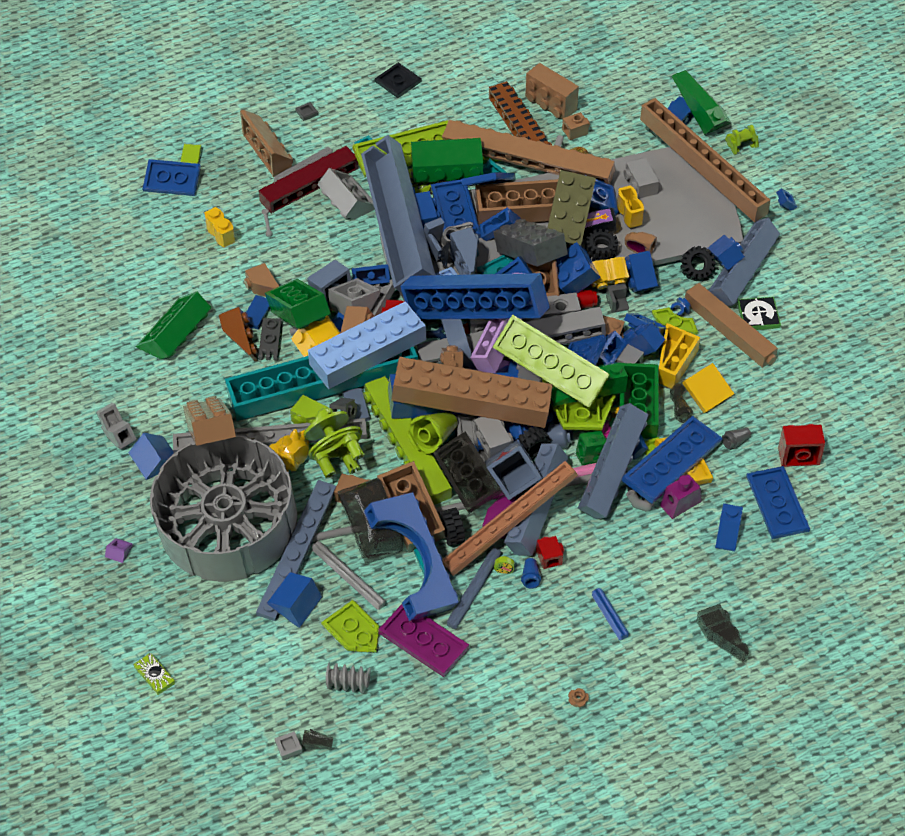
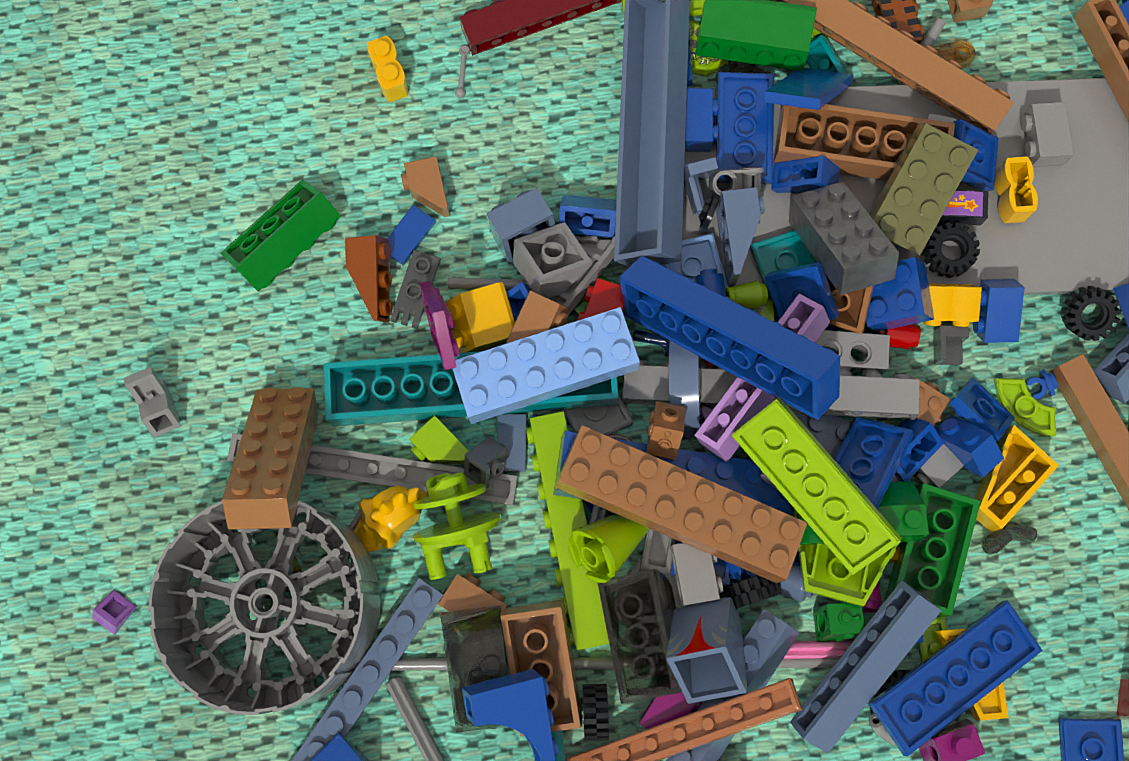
camera: 15 degrees right, 25 degrees up
(150, 454) = (199, 459): slope -> none
(293, 336) = (440, 324): none -> magenta plate
(298, 303) = (463, 254): green brick -> none
(346, 194) = (589, 49): light grey slope -> none
(640, 242) = (1013, 259): medium nougat rock -> none
(682, 410) = (993, 575): clear smoke cone -> none
(708, 388) = (1044, 549): yellow tile -> none
(734, 438) = (1062, 649): dark grey cone -> none

